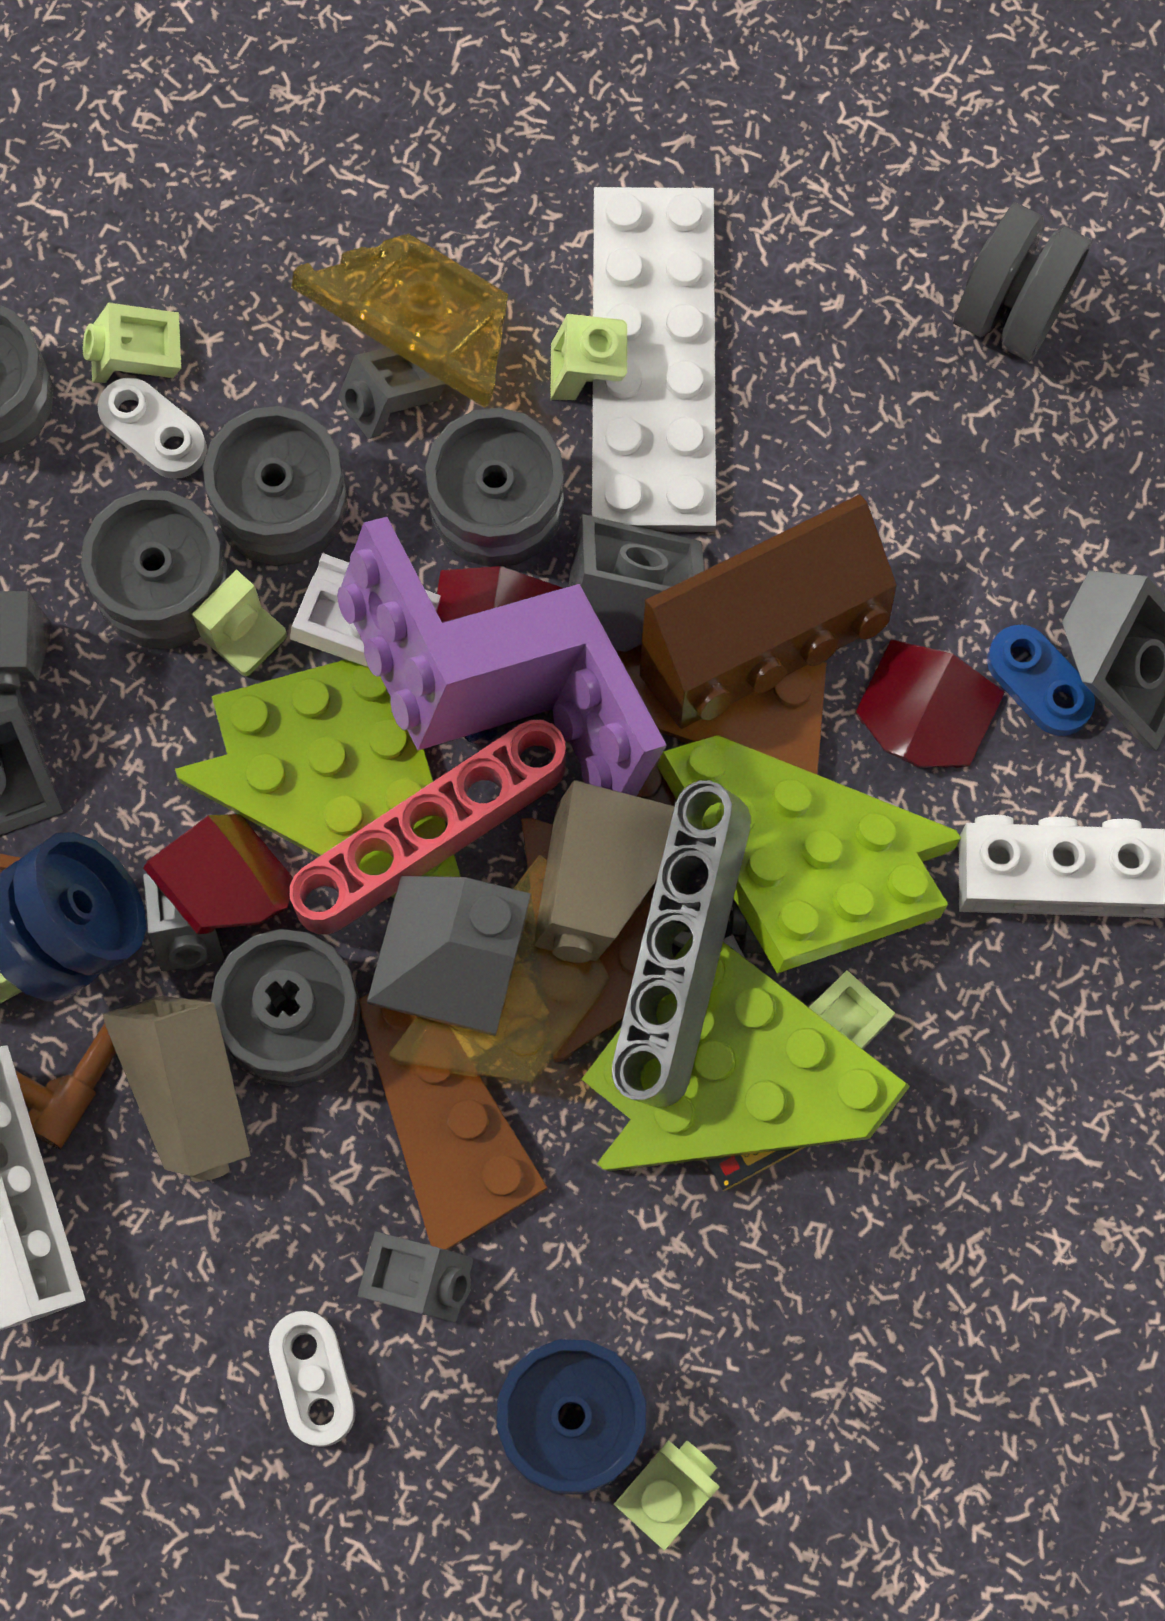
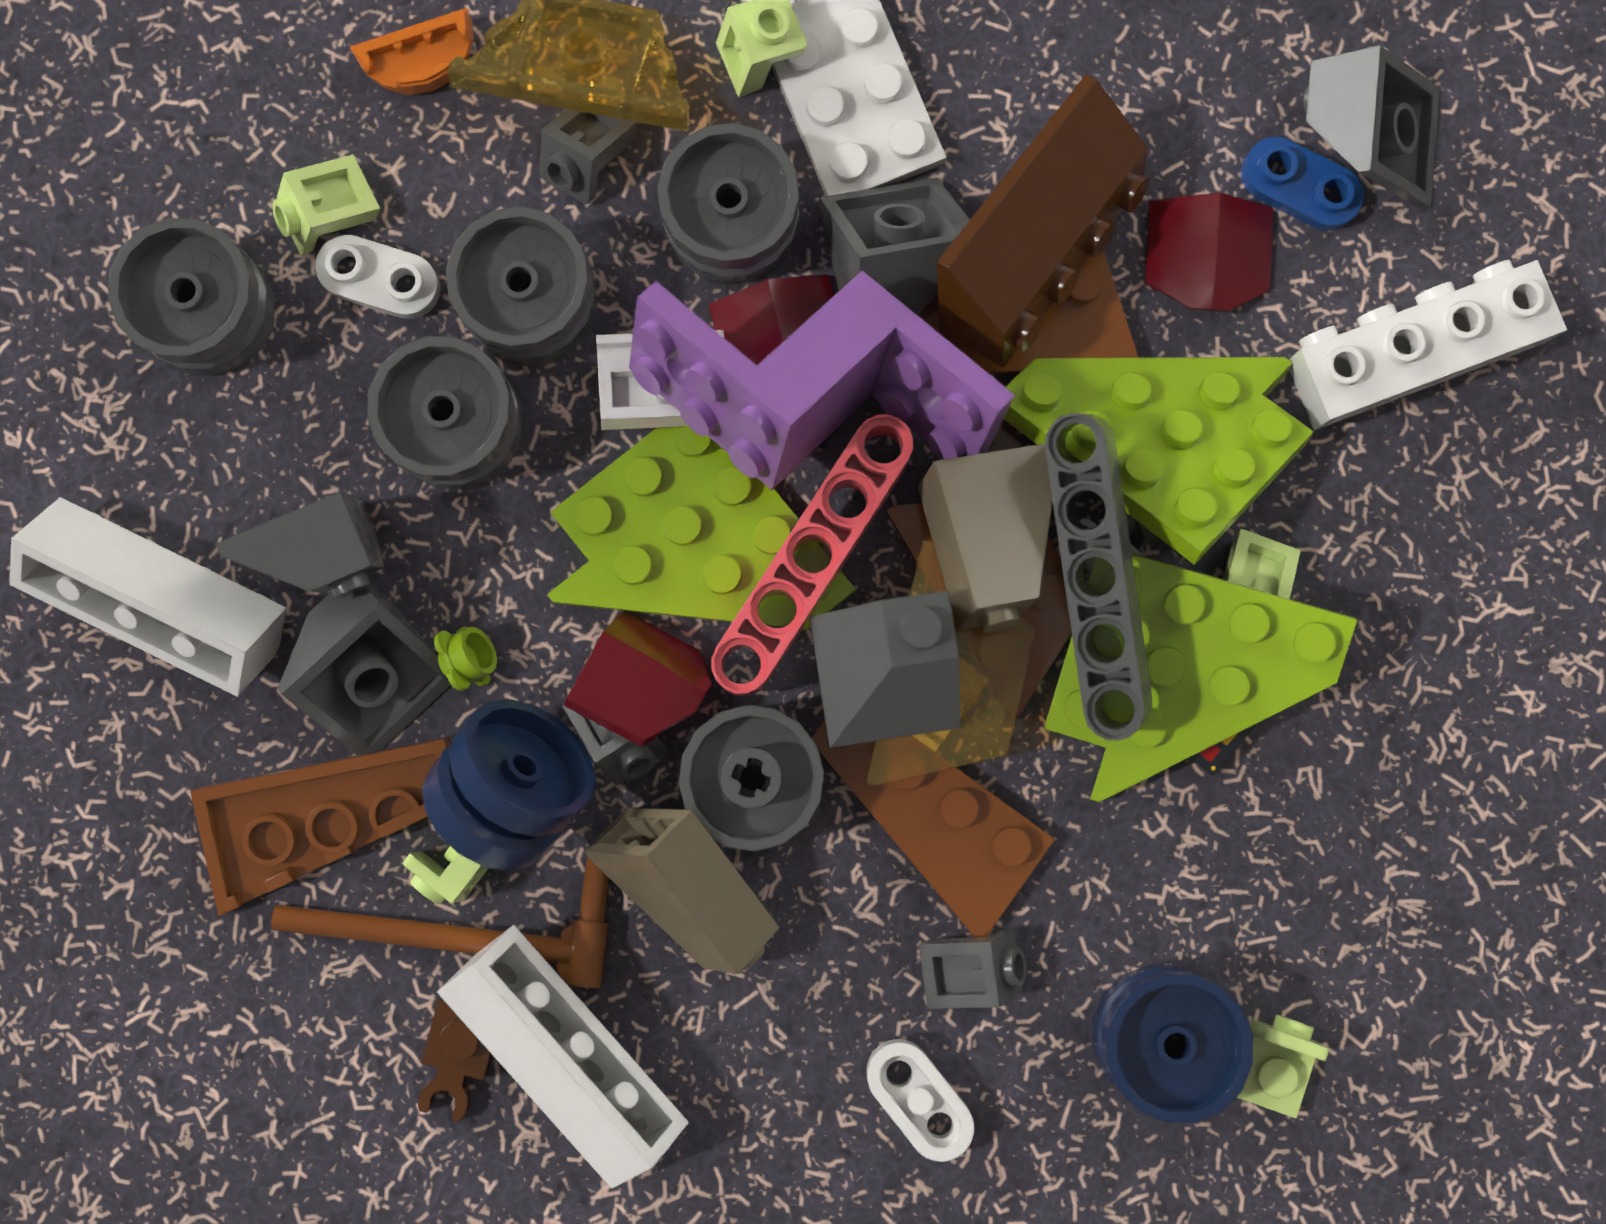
camera: 20 degrees left, 10 degrees up
(75, 794) = (466, 657): none -> lime plate
(238, 625) = (547, 435): yellowish green bracket -> none
(273, 250) = (419, 55): none -> orange plate

